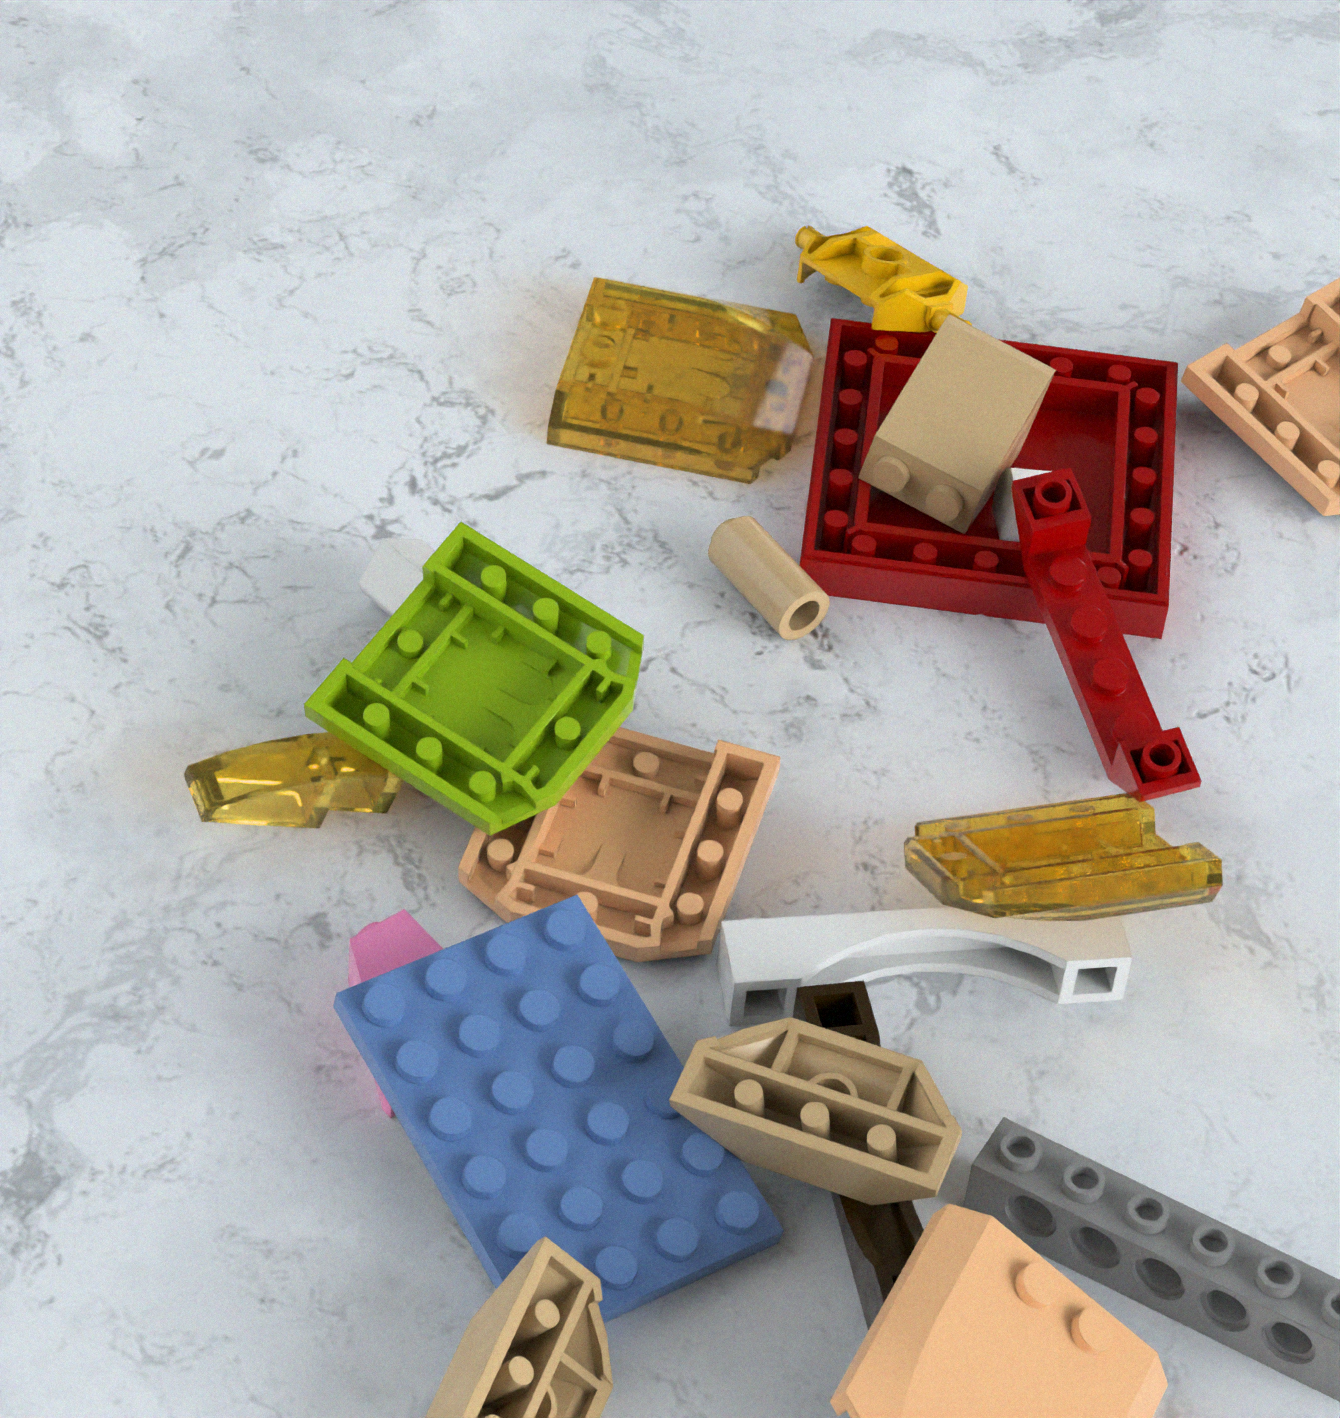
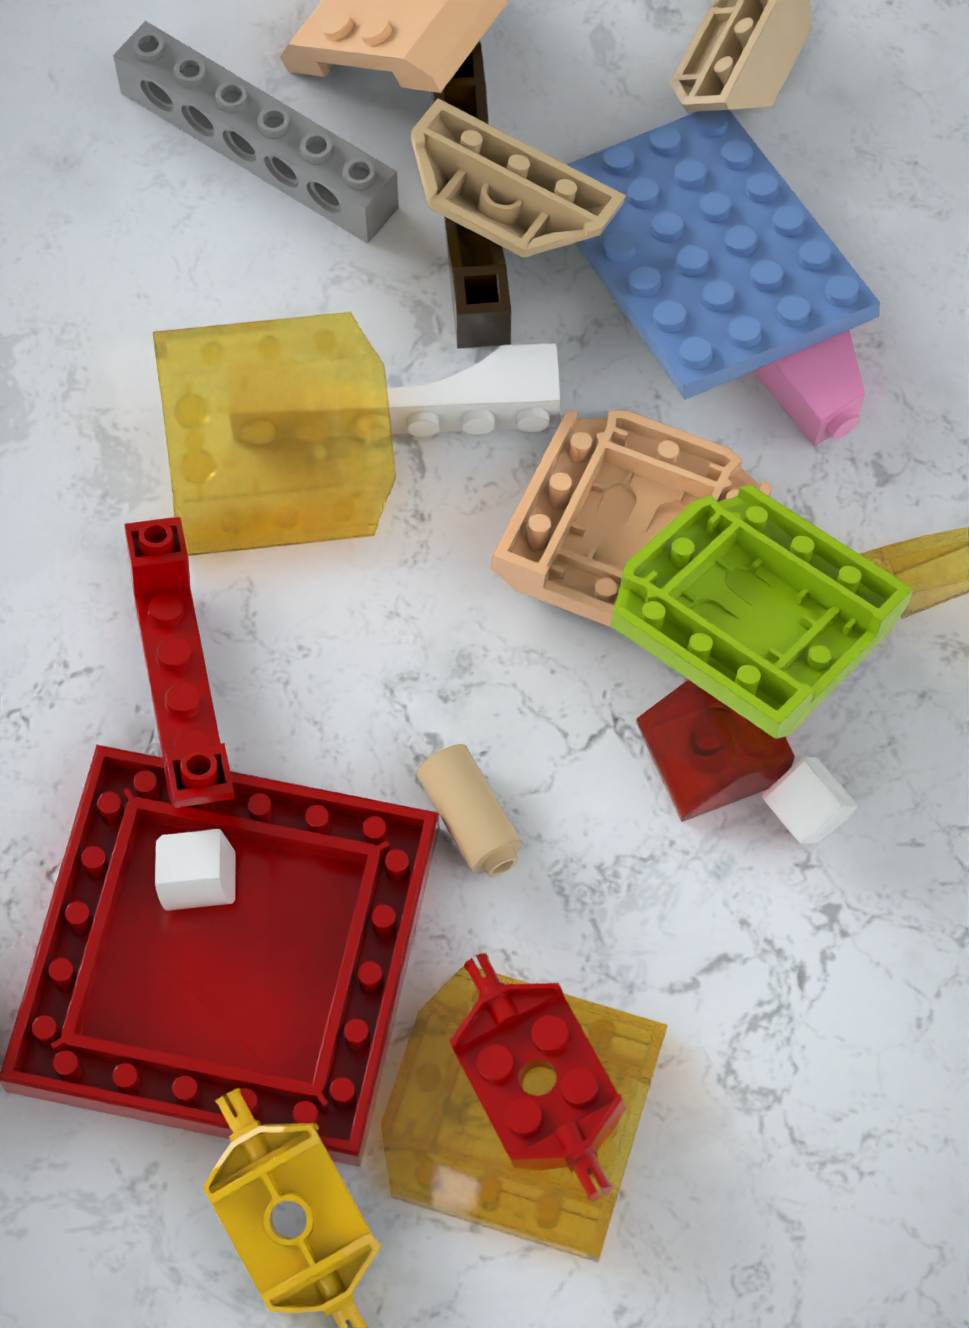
camera: 170 degrees left, 20 degrees up
(656, 308) = (530, 1028): none -> red plate
(957, 424) = (266, 930): tan slope -> none

